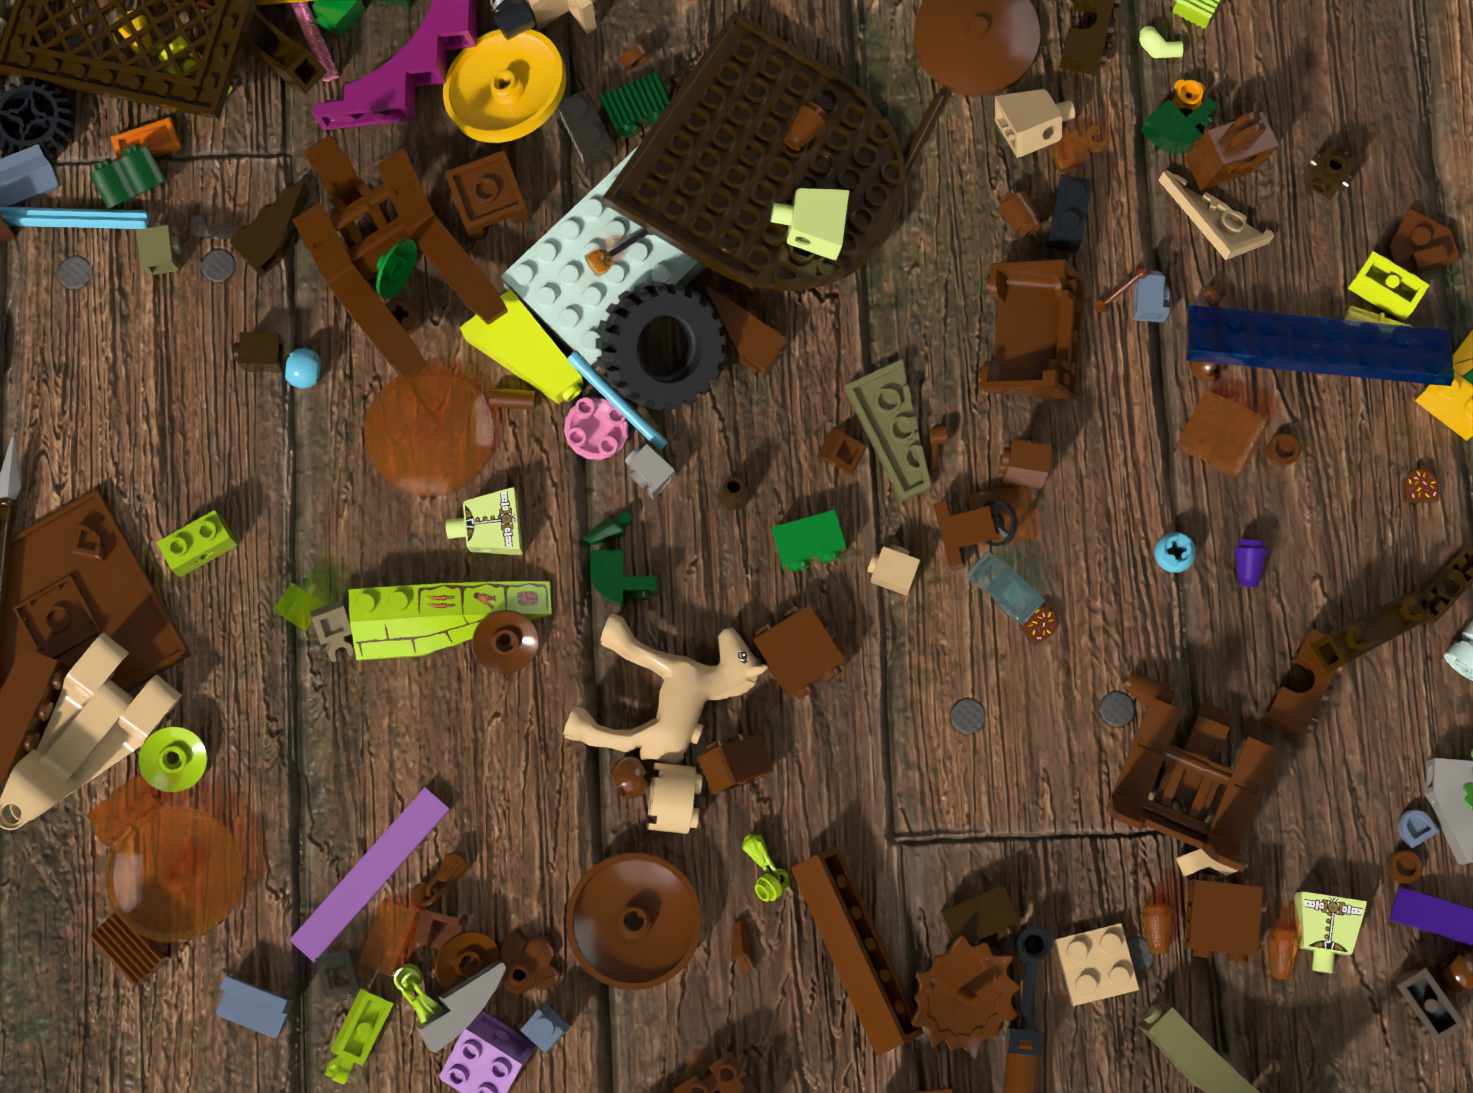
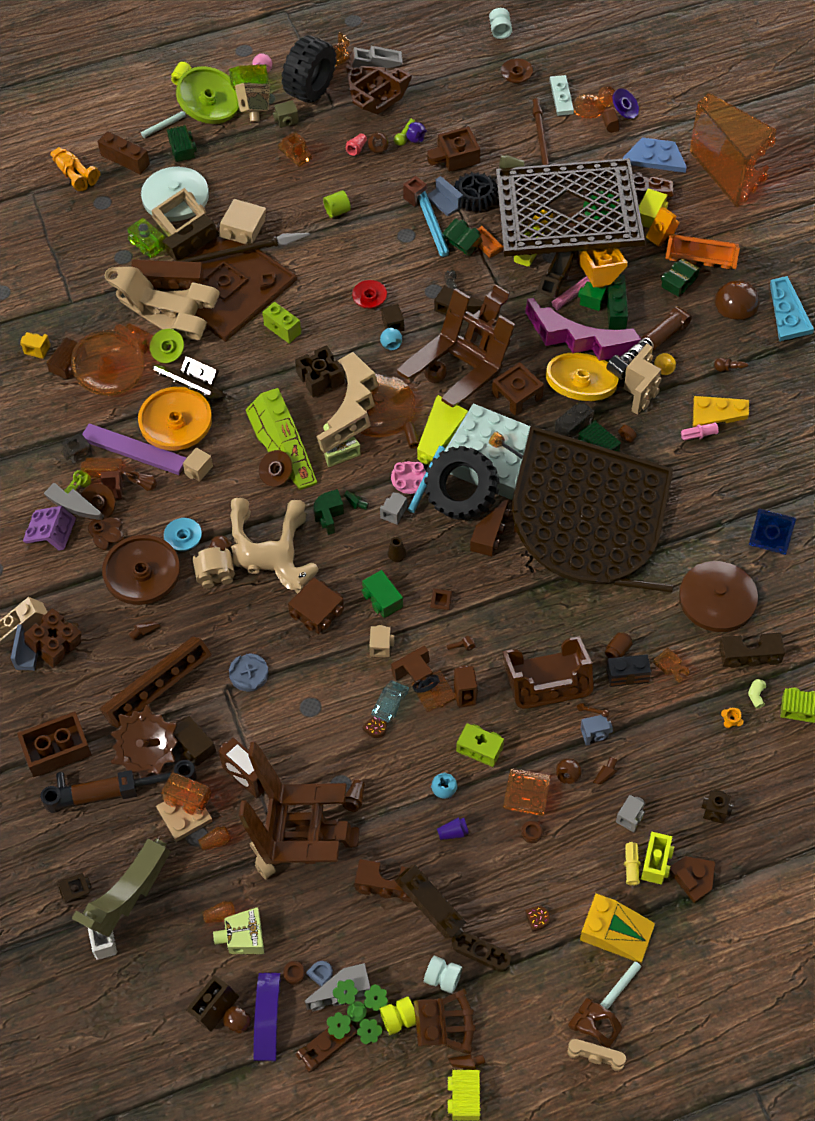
camera: 70 degrees right, 20 degrees down
(76, 998) = (35, 345): none -> yellow brick
(158, 249) = (430, 261): olive brick -> none
(183, 362) = (372, 289): none -> red dish
(253, 1006) = (51, 419): sand blue panel -> none
(263, 729) = (195, 375): none -> bracket
(296, 605) = (264, 373): clear neon green panel -> none
(315, 499) = (319, 371): none -> dark brown brick
(332, 627) = (256, 387): dark tan plate -> none
(341, 785) = (175, 418): none -> light orange dish
(357, 1034) = (48, 466): lime plate -> none
(395, 267) = (459, 358): green dish -> none
(452, 772) = (197, 464): none -> tan brick
(464, 483) = (352, 414): none -> tan arch
(545, 1028) = (72, 547): sand blue brick -> none
(570, 821) = (183, 528): none -> medium azure dish
(734, 763) = (242, 589): reddish brown brick -> none
(767, 885) = (199, 619): lime piece -> none
(806, 124) = (617, 515): reddish brown cone -> none
(814, 220) = (562, 531): yellowish green torso -> none
(877, 795) = (248, 672): none -> sand blue tile
(889, 421) = (468, 614): olive wing -> none
(1031, 119) = (675, 633): tan torso -> none
(1061, 847) = (237, 763): none -> reddish brown brick
(1081, 952) = (186, 794): none -> clear orange brick
(1116, 493) = (470, 741): none -> lime brick
(1173, 131) = (706, 717): dark green brick -> none
(1215, 219) = (657, 755): tan wing -> none
(1224, 918) = (229, 871): reddish brown brick -> none
(1231, 149) = (703, 741): reddish brown brick -> none
(1300, 294) = (631, 813): none -> light grey brick
(1319, 345) = (600, 826): clear blue plate -> none

